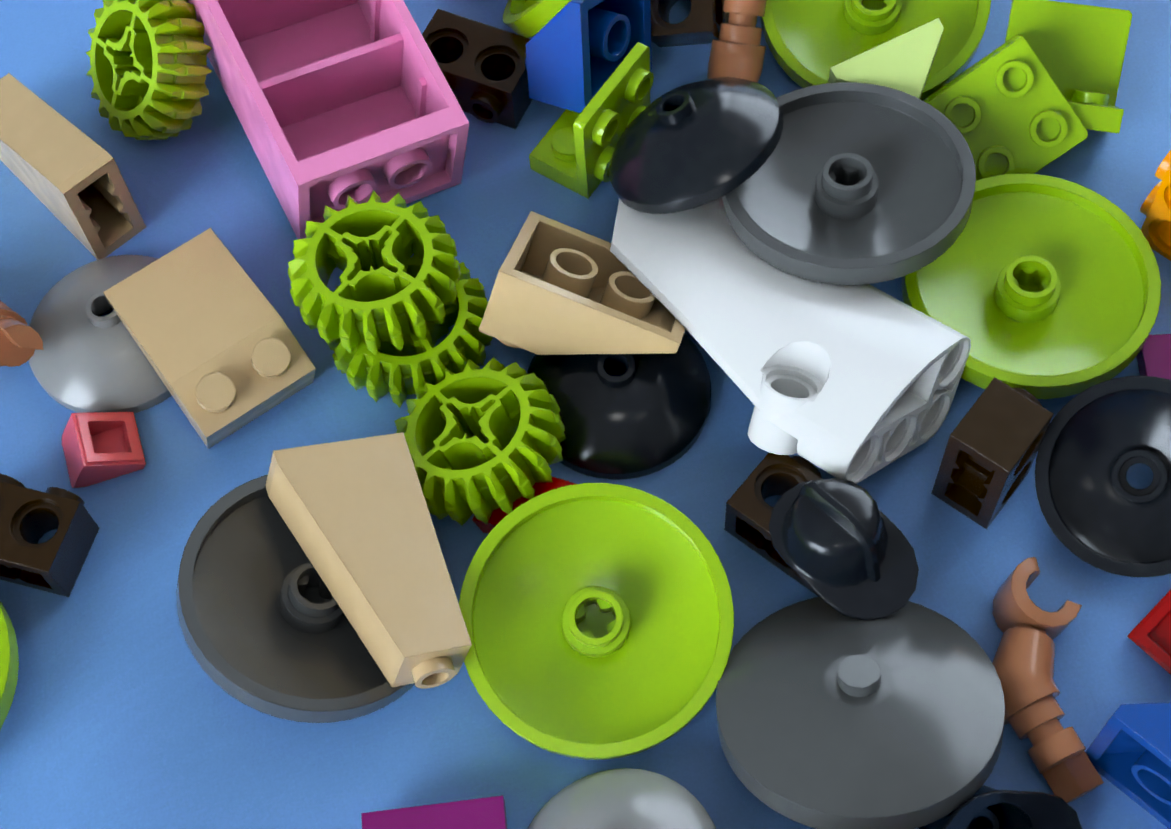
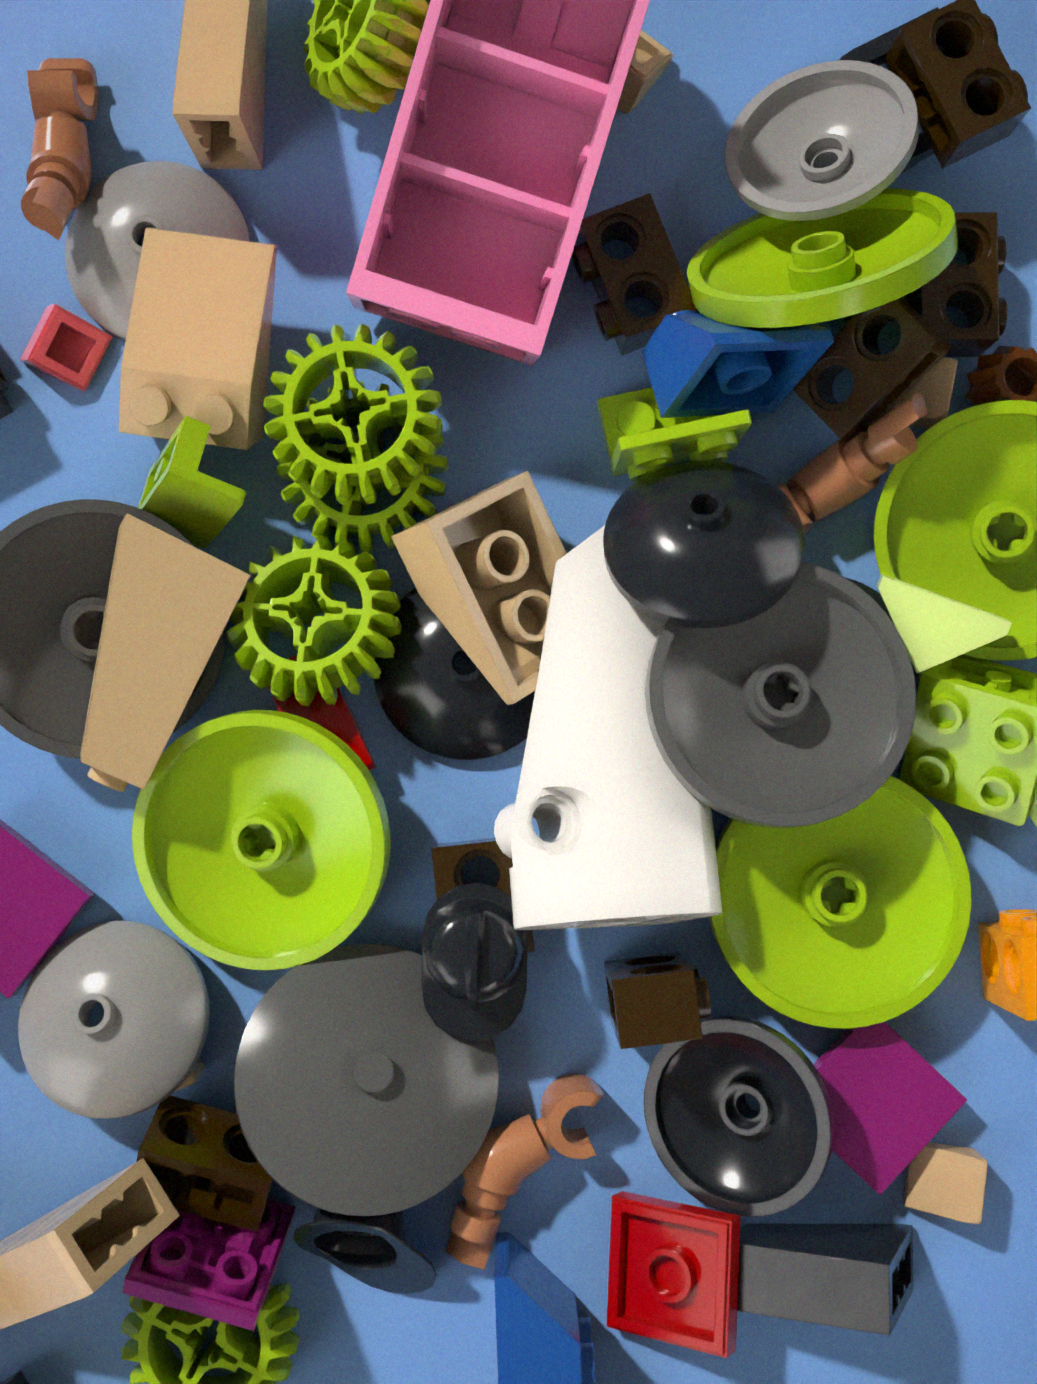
camera: 40 degrees right, 25 degrees up
(293, 413) = (184, 496): none -> lime panel

